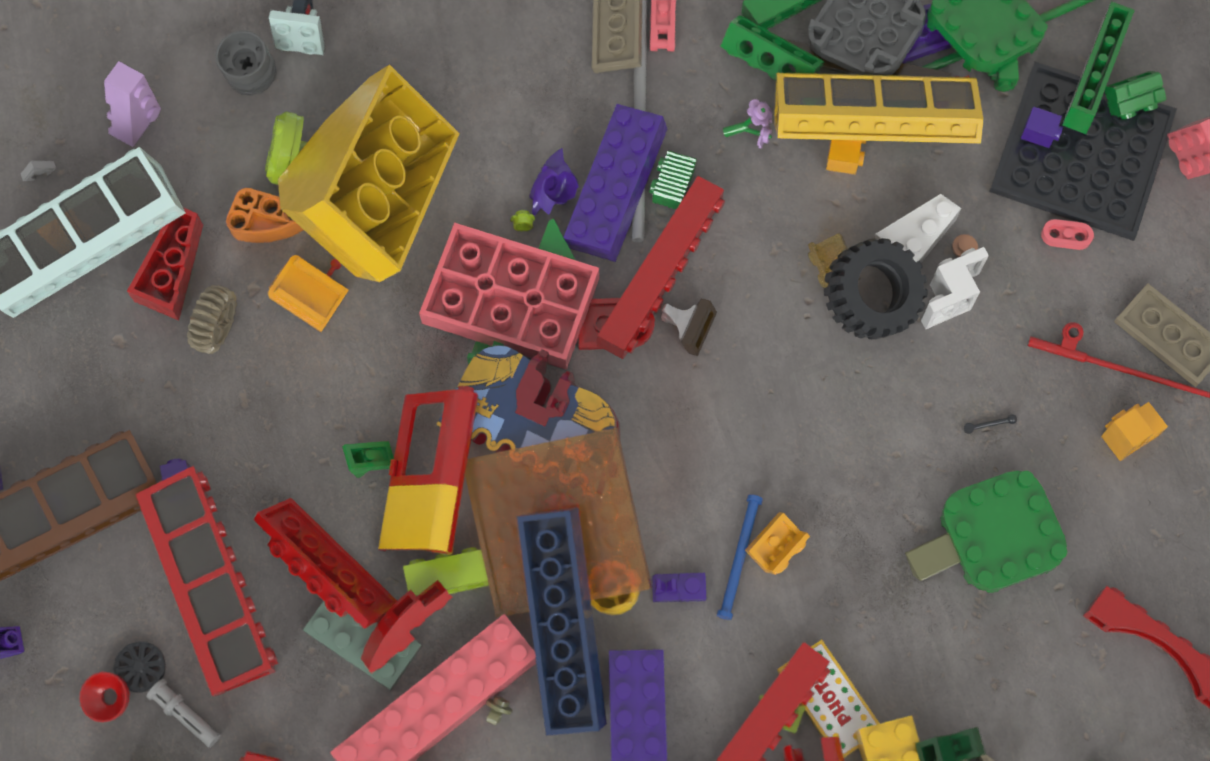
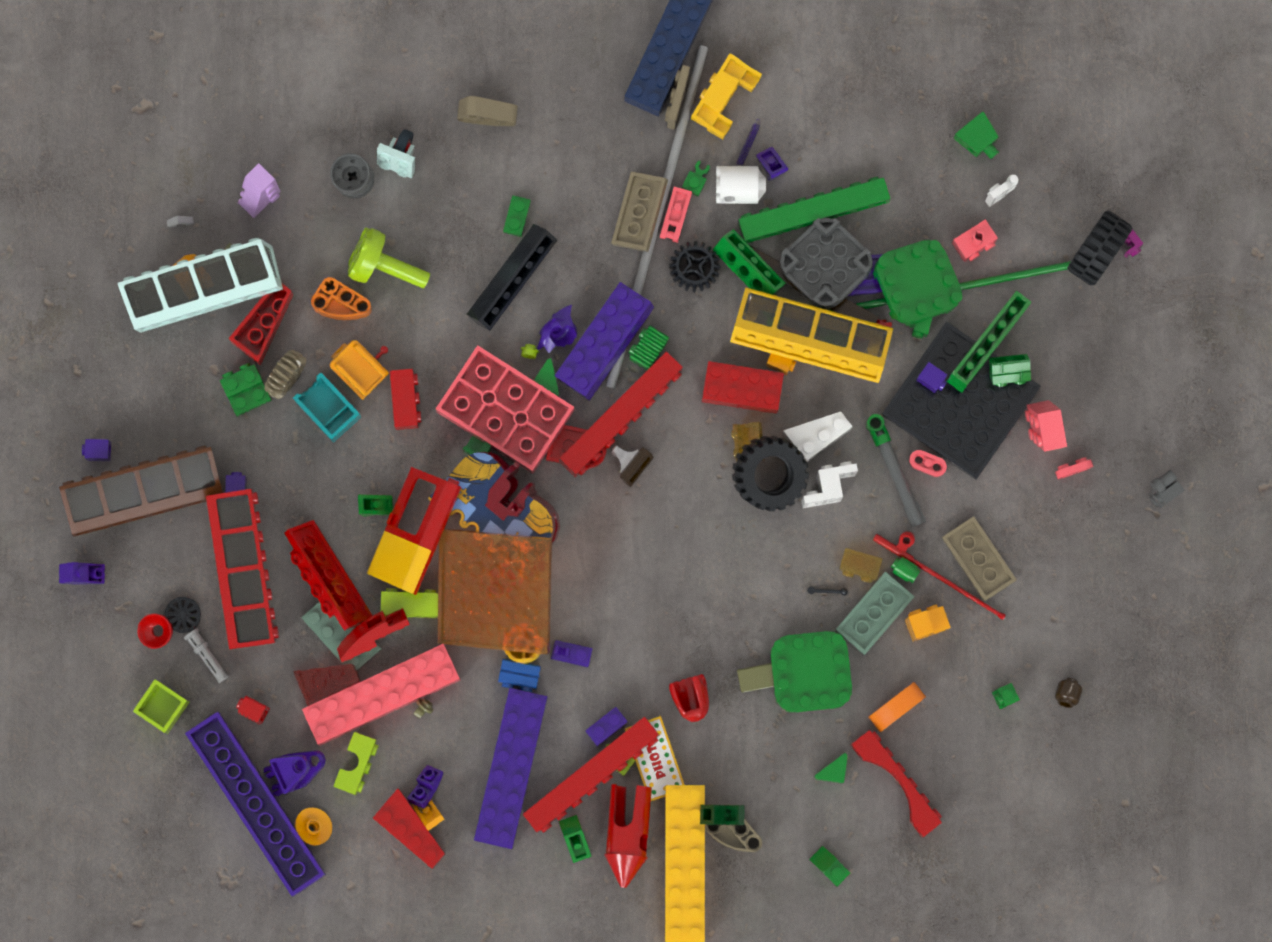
camera: 10 degrees right, 10 degrees up
(164, 354) = (245, 389): none -> green plate
(278, 349) = (327, 408): none -> teal piece
(351, 709) = (323, 682): none -> clear red wing
(370, 175) = (422, 301): yellow brick -> none
(377, 316) = (405, 399): none -> red brick
(465, 67) = (517, 216): none -> green plate
(478, 135) = (512, 277): none -> black brick
(562, 621) = (481, 660): dark blue brick -> none
(619, 632) = (519, 675): none -> blue brick
(707, 84) = (700, 261): none -> black gear
(726, 608) = (620, 642): blue bar -> none
(753, 672) = (606, 726): none -> dark purple brick
(760, 114) = (722, 318): lavender plant -> none
(777, 544) = (648, 641): light orange bracket -> none
(806, 198) = (742, 387): none -> red brick
(856, 604) = (691, 697): none -> red hair
(963, 243) = (849, 453): nougat plate -> none
(1001, 219) = (882, 440): none -> dark grey piece
(1023, 379) = (860, 564): none -> clear yellow bracket
(1061, 435) = (874, 613): none -> sand green plate
(1077, 654) = (835, 771): none -> green slope
(1083, 370) = (905, 569): none -> green brick
(1133, 546) = (897, 707): none -> orange beam

